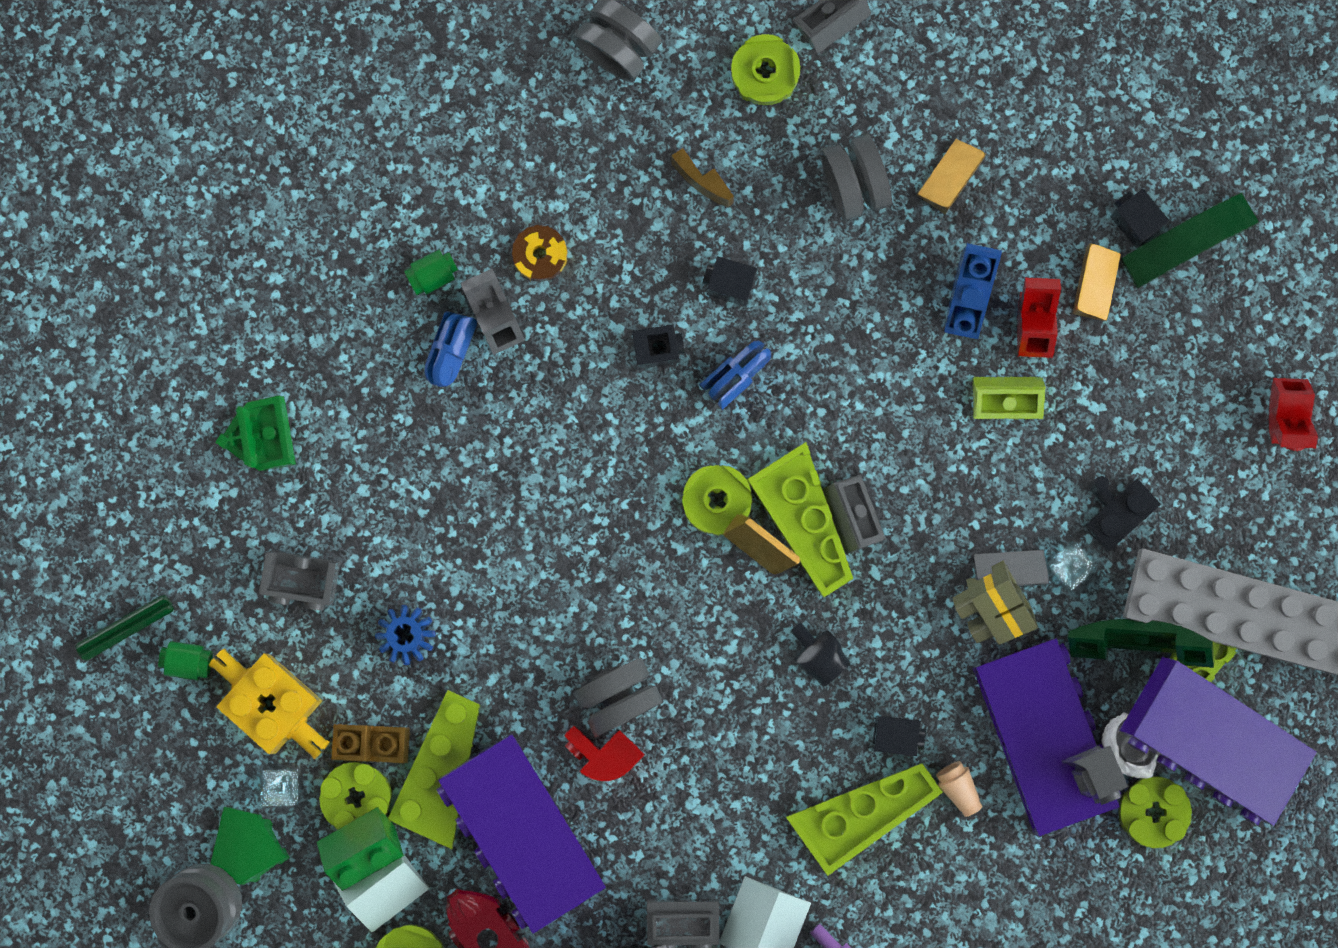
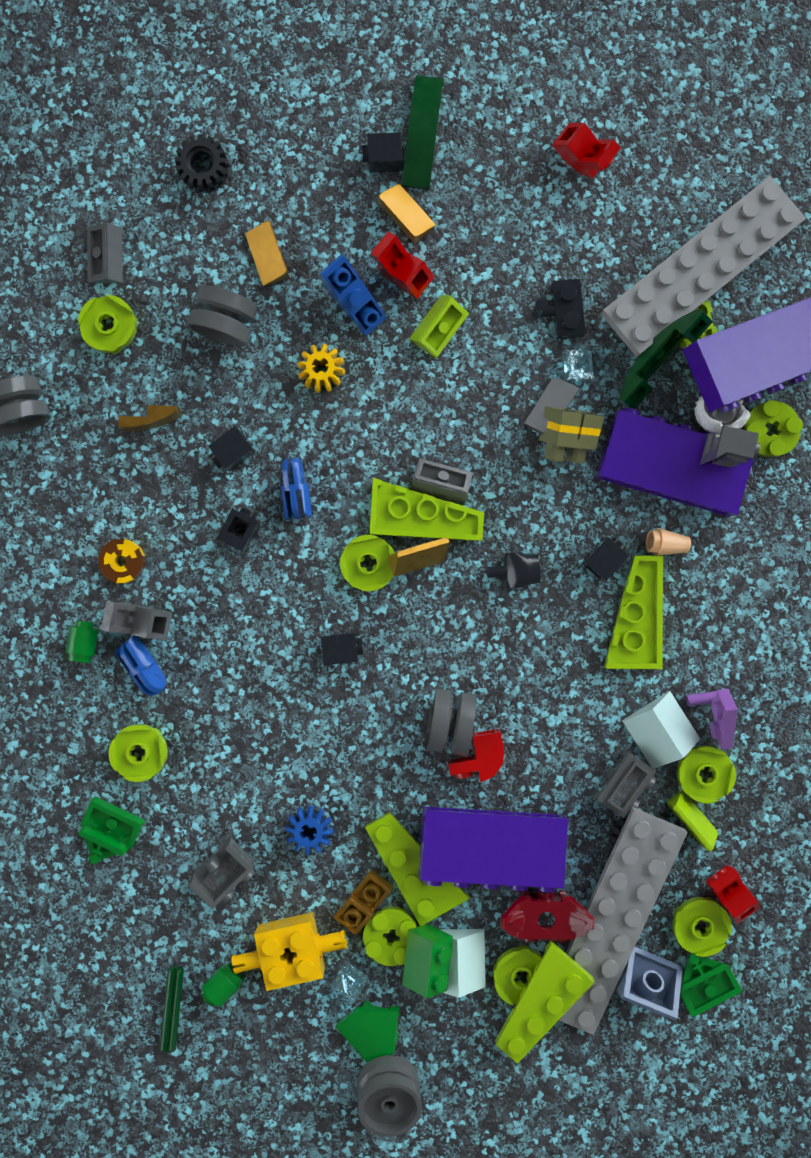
camera: 60 degrees left, 5 degrees up
(361, 388) = (127, 764): none -> lime plate
(611, 534) = (341, 648): none -> black brick
(886, 304) = (320, 358): none -> yellow gear
(993, 67) = (199, 147): none -> black tyre

